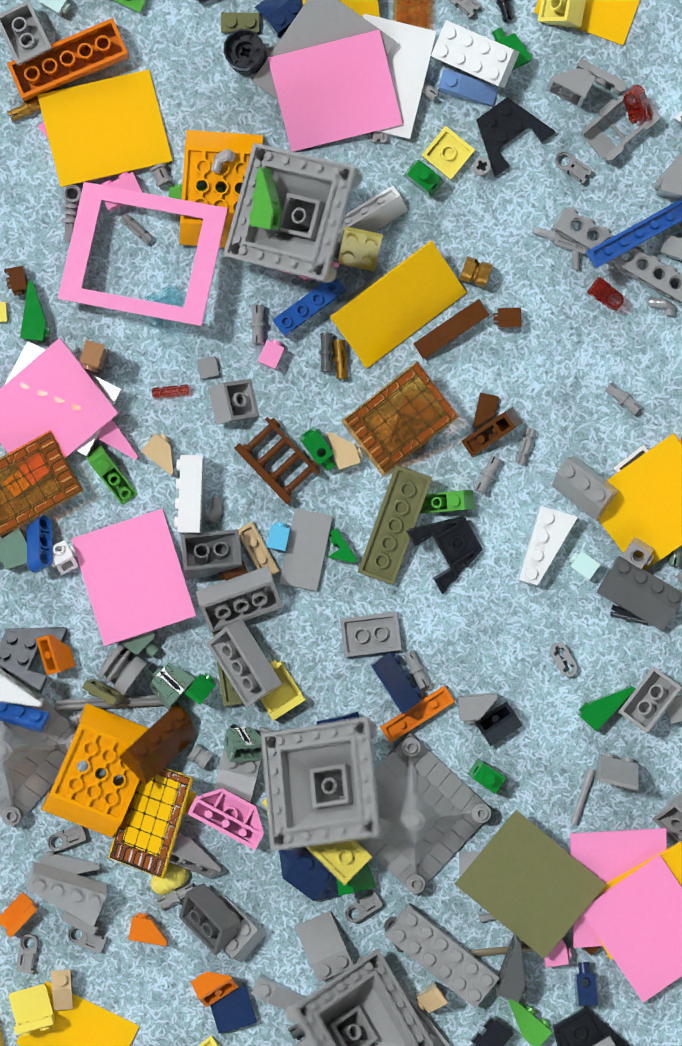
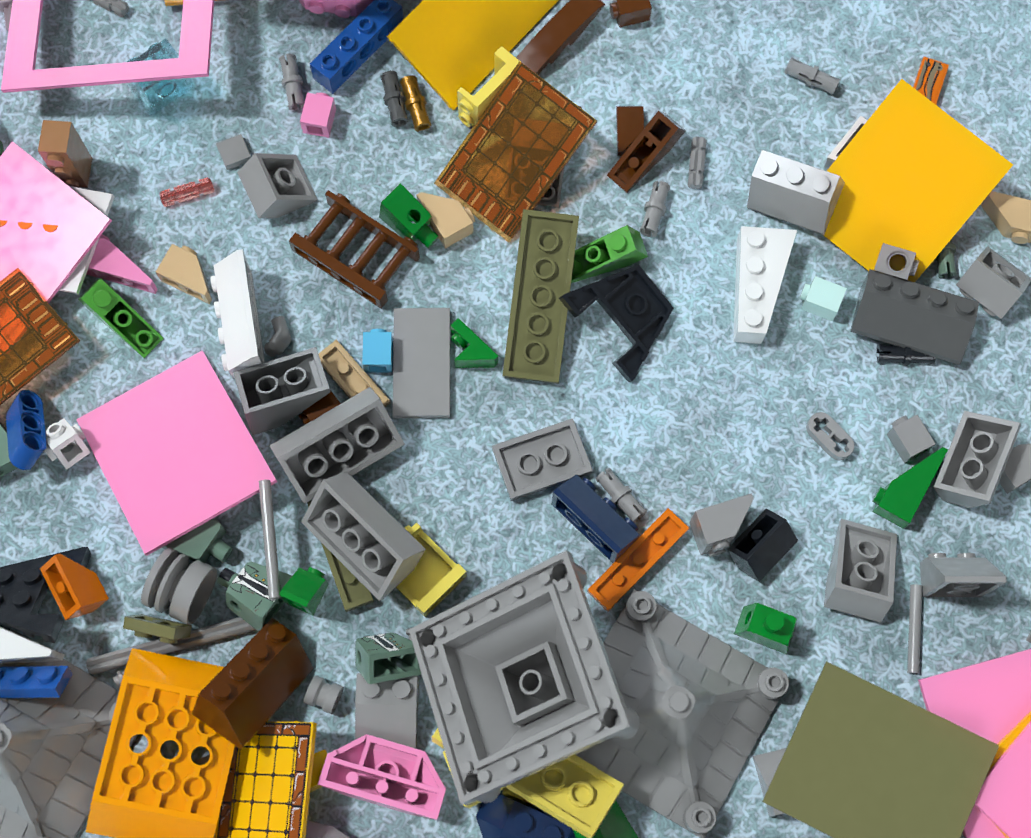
camera: 15 degrees left, 15 degrees down
(184, 654) = (269, 539): none -> light grey bar
(410, 359) = (472, 106): none -> light yellow panel
(558, 752) = (862, 571): none -> light grey slope
(614, 673) = (910, 437): none -> light grey brick

